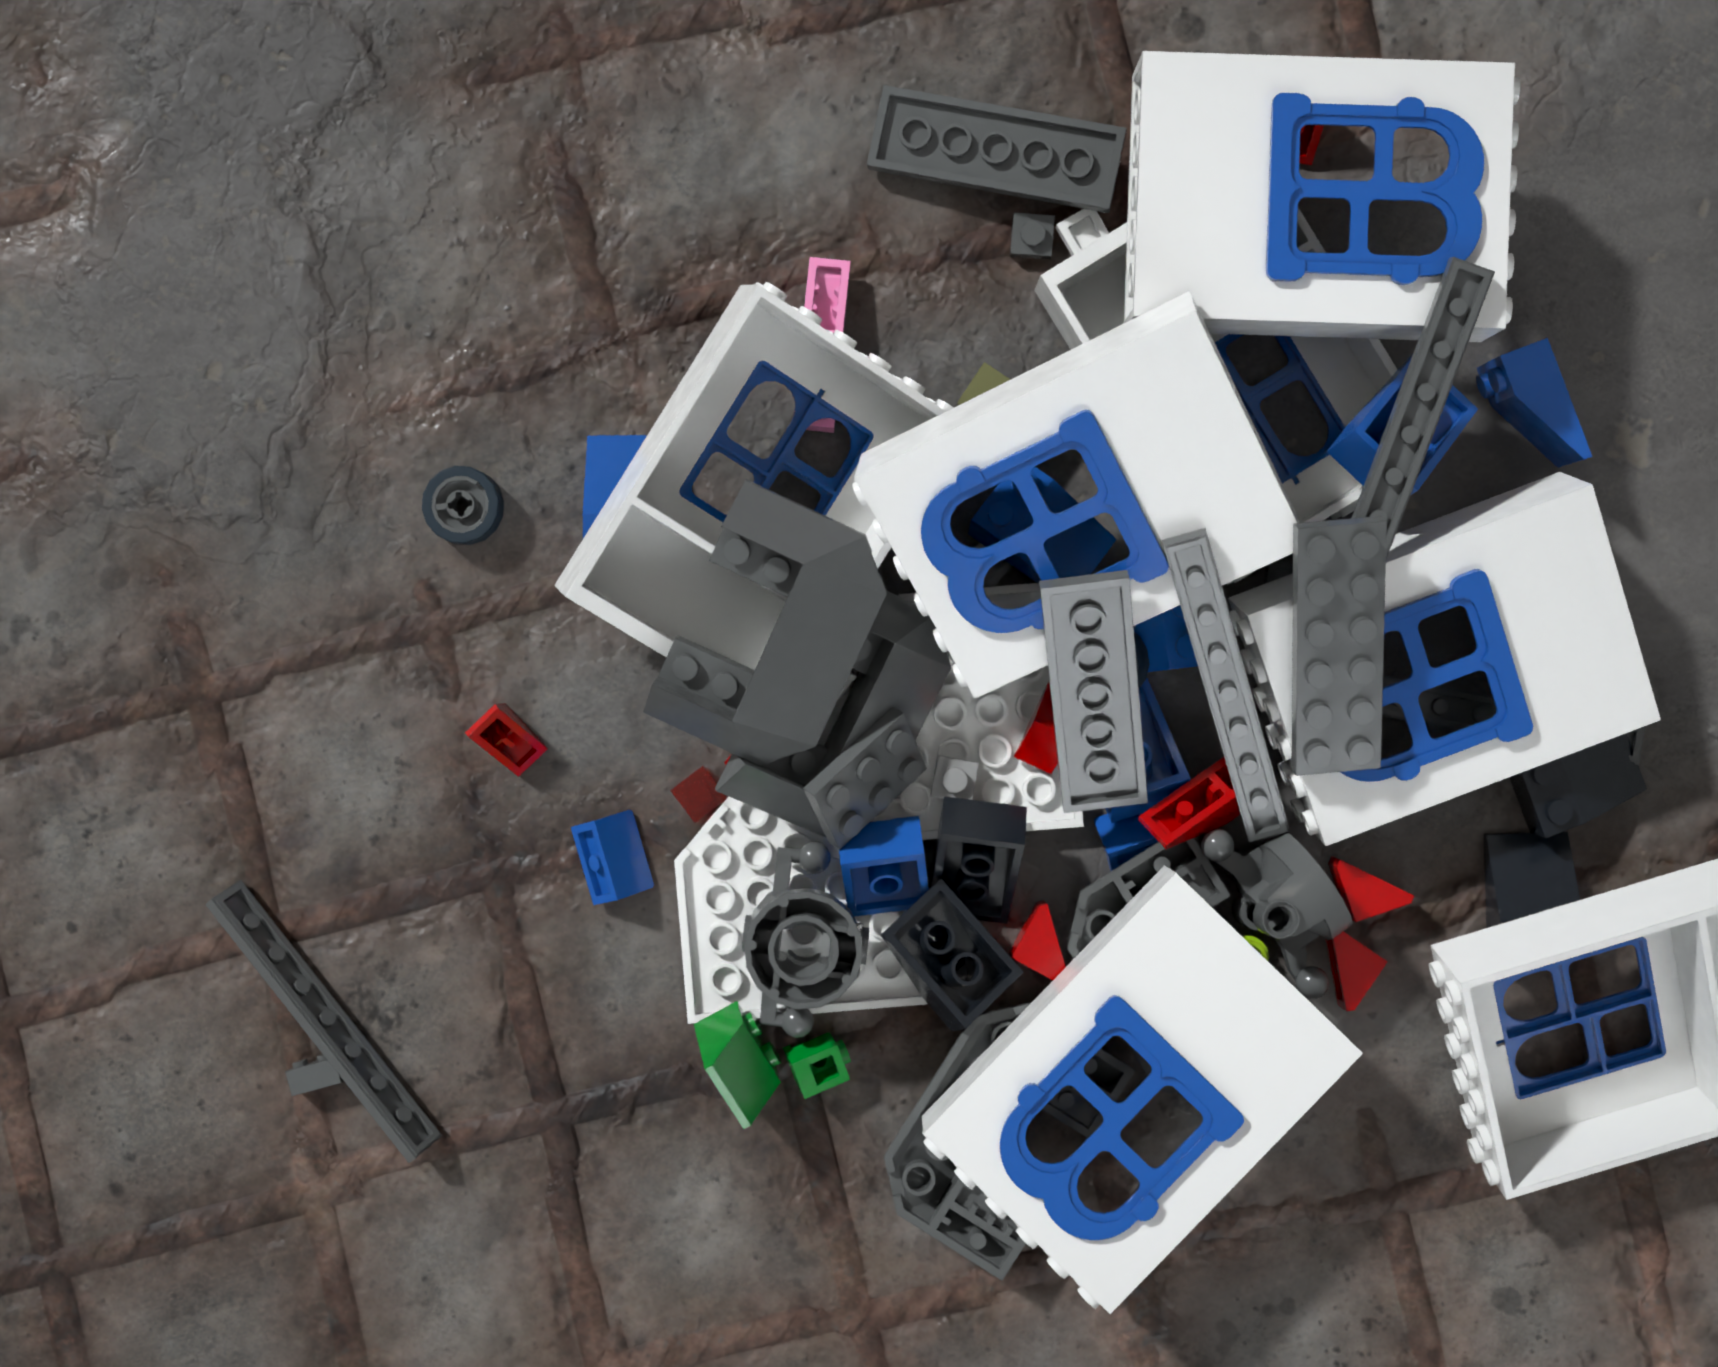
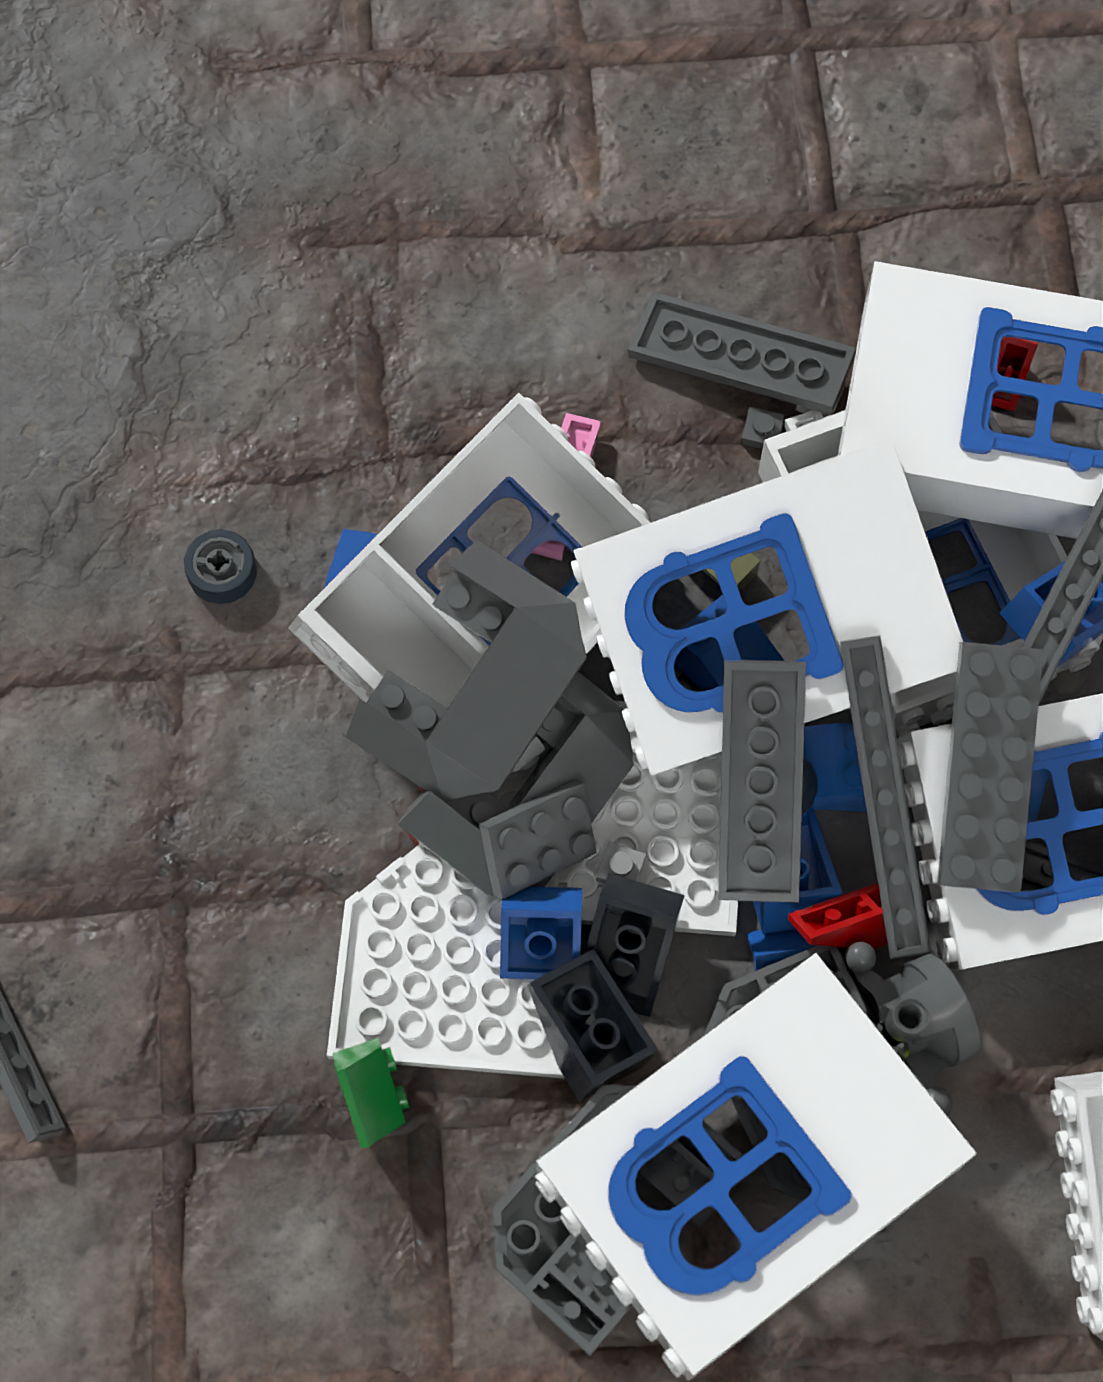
camera: 10 degrees right, 20 degrees down
(507, 738) = (213, 767): red slope -> none
(612, 857) = (287, 891): blue panel -> none
(698, 794) = (379, 849): clear red plate -> none
(796, 979) = (451, 948): dark grey piece -> none
(818, 1064) = (460, 1122): green brick -> none
(1038, 943) = (676, 1030): red slope -> none
(1039, 741) = (704, 842): red slope -> none
(1352, 969) = (977, 1102): red slope -> none
(1365, 893) = (1001, 1037): red slope -> none

